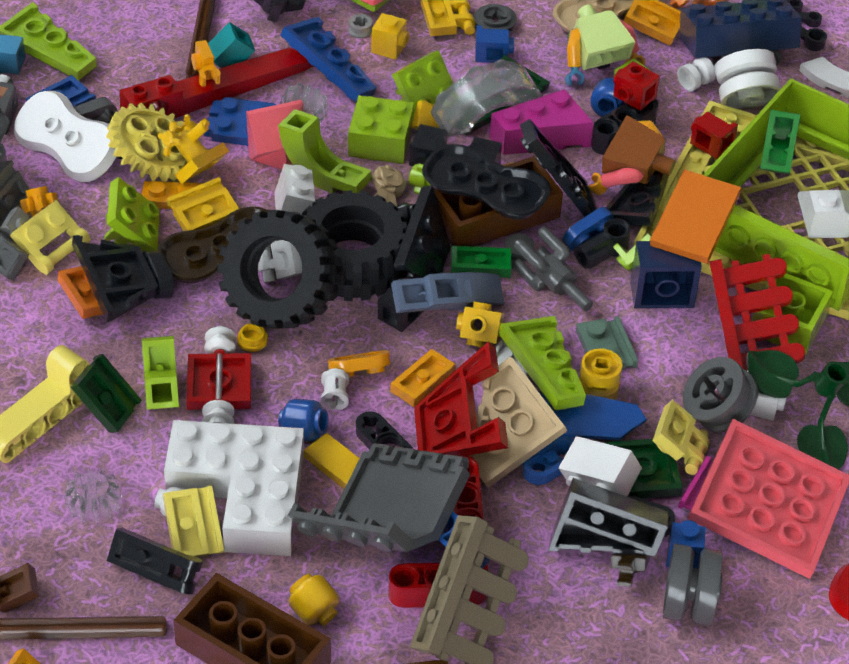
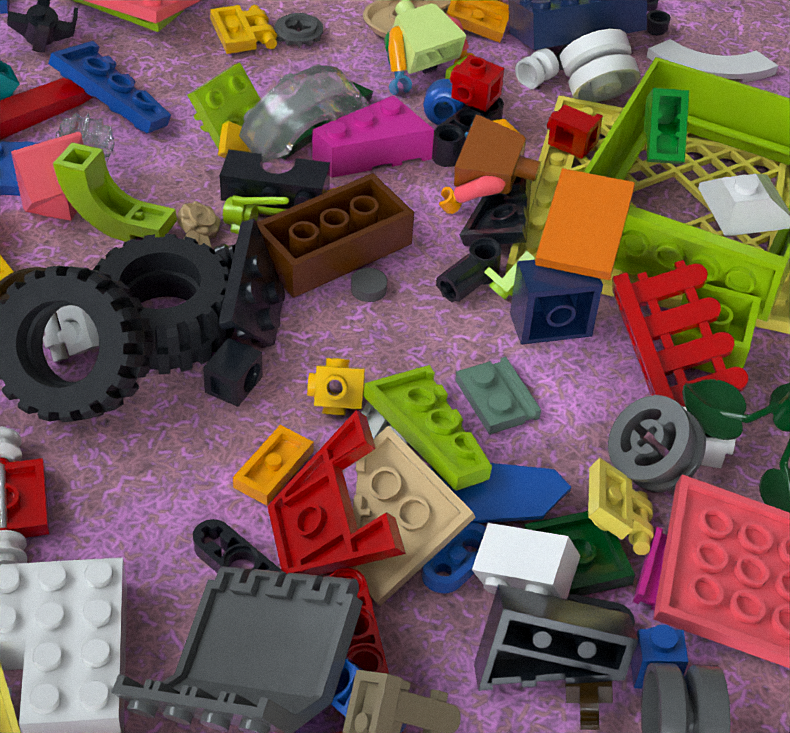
camera: 10 degrees left, 0 degrees up
(252, 338) = (43, 437): yellow plate -> none
(294, 189) = (82, 239): white brick -> none
(306, 415) = (123, 537): blue head -> none
(332, 459) = (167, 593): yellow tile -> none
(341, 398) = (159, 494): white bush -> none
(357, 21) = (143, 49): light grey bush -> none
(370, 361) = (202, 450): light orange plate -> none
(380, 129) = (181, 161): lime brick -> none
(389, 36) = (179, 55): yellow brick -> none
(446, 291) = (288, 349): sand blue slope -> none
(466, 172) = (294, 199): black plate -> none
(481, 260) = (325, 307): green plate -> none
(492, 44) = (300, 54): blue brick -> none
(550, 268) = (412, 306): dark grey plant -> none
(559, 167) = (406, 186): black wing -> none
(587, 227) = (448, 252): blue plate -> none
(601, 373) = (502, 432): yellow wheel -> none

